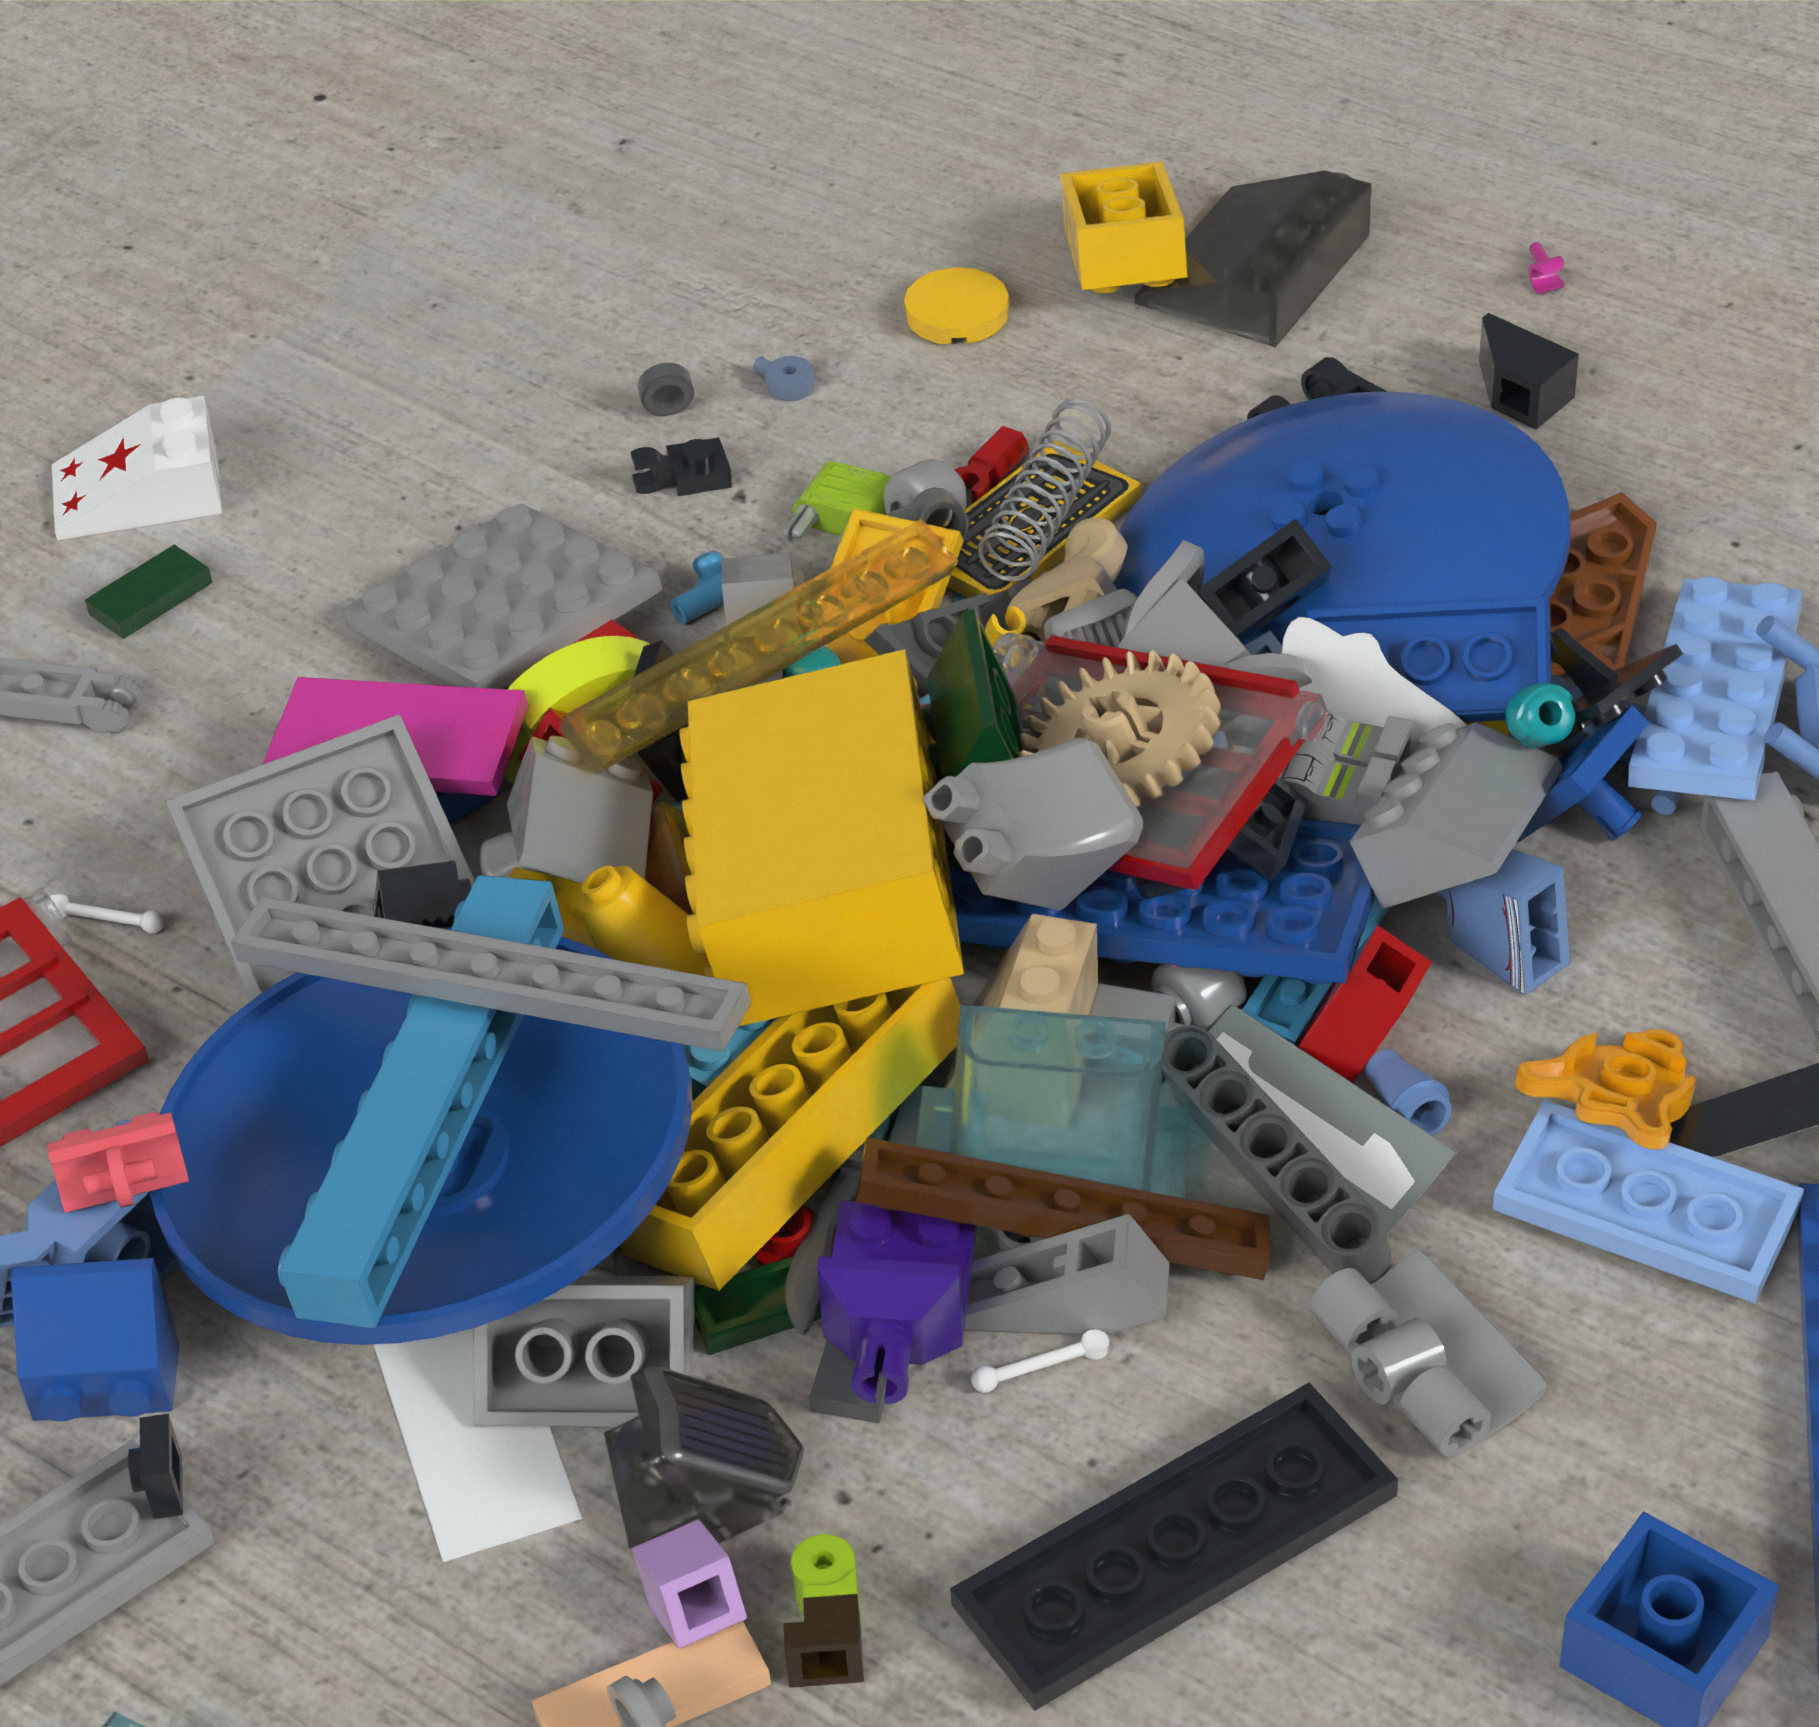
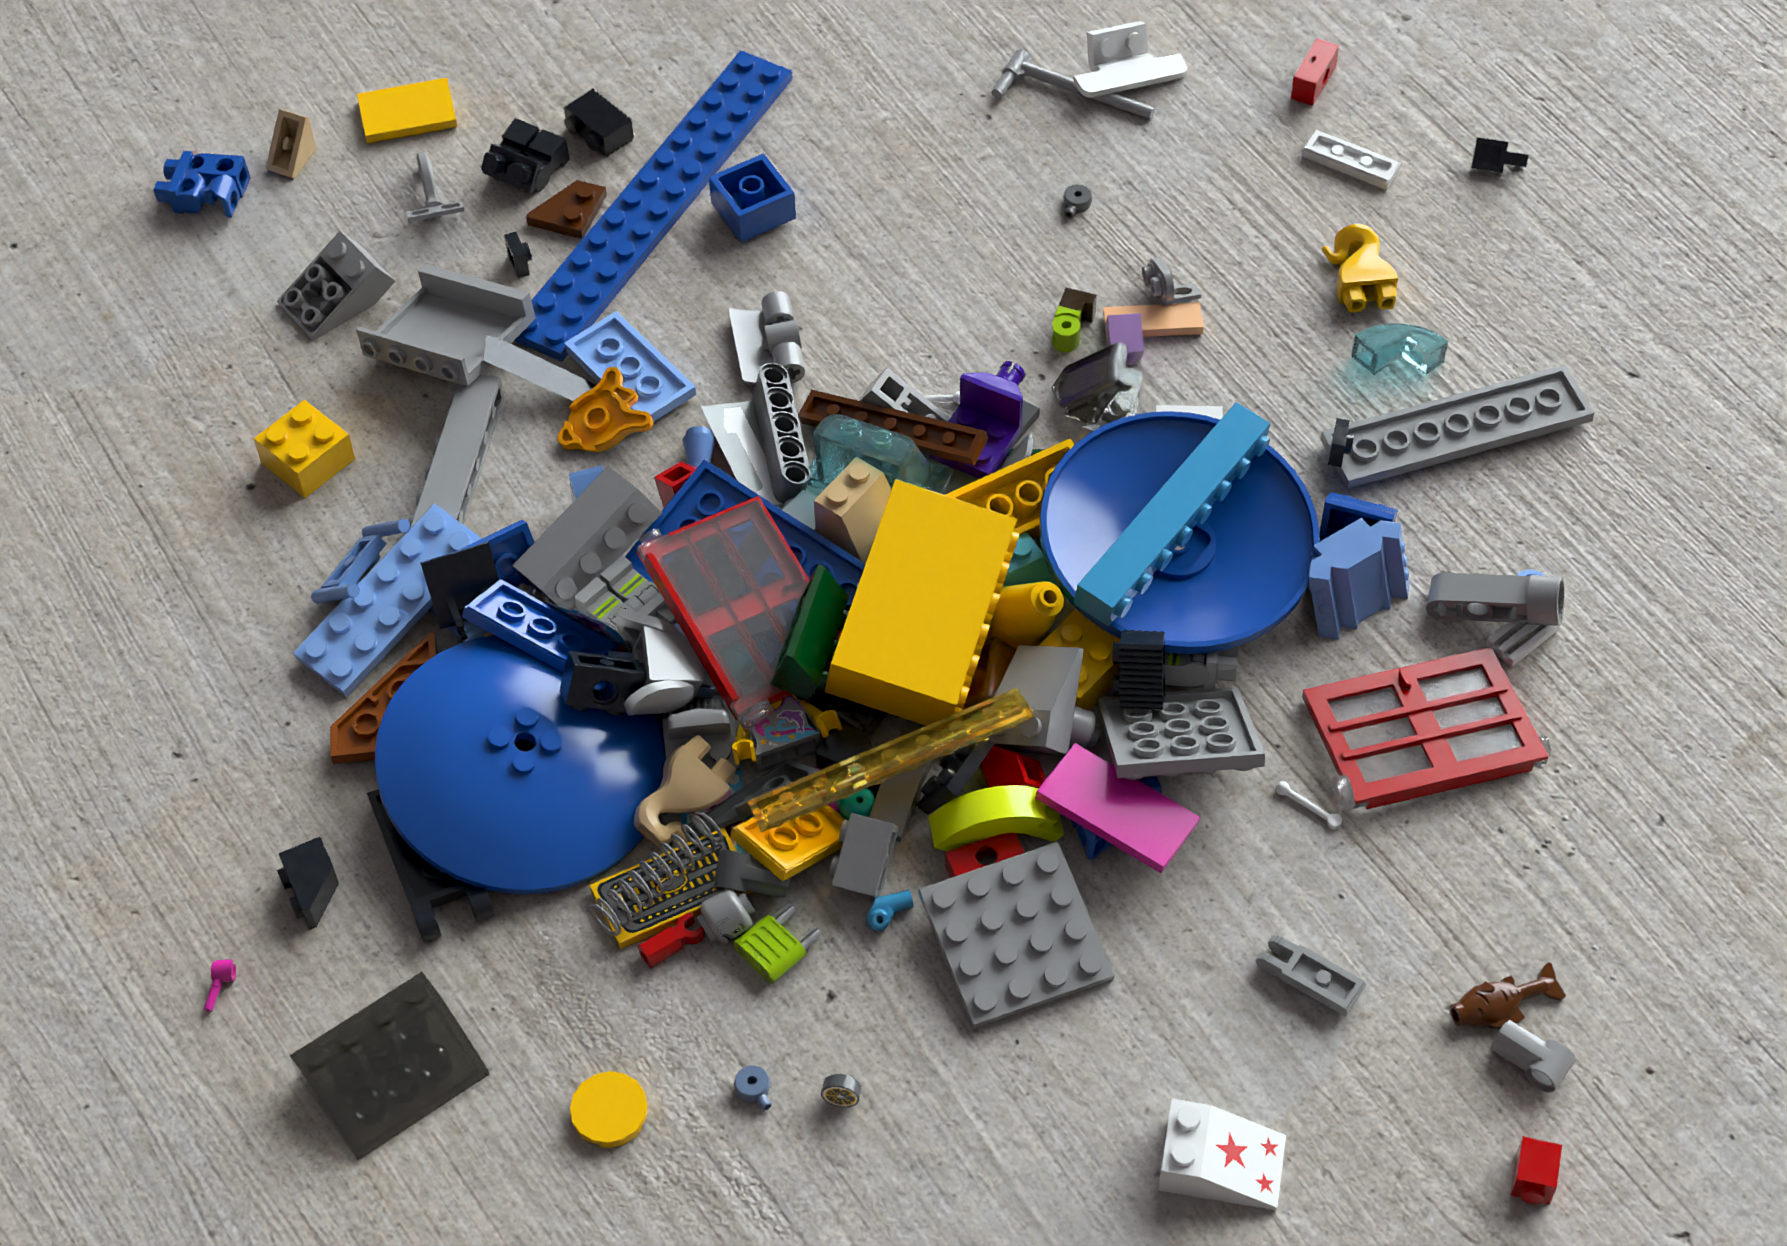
camera: 160 degrees left, 10 degrees up
(117, 1162) = (1333, 528): coral hips -> none
(148, 591) = (1233, 1050): dark green tile -> none
(494, 973) = (1132, 523): light grey plate -> none
(688, 466) = (851, 1021): black plate -> none
(1038, 822) = (825, 536): light grey hips -> none
(1123, 227) = (471, 1092): yellow brick -> none
(1125, 712) = (747, 574): tan gear -> none
(1172, 1544) = (916, 301): black plate -> none
(1540, 714) = (513, 565): teal piece -> none

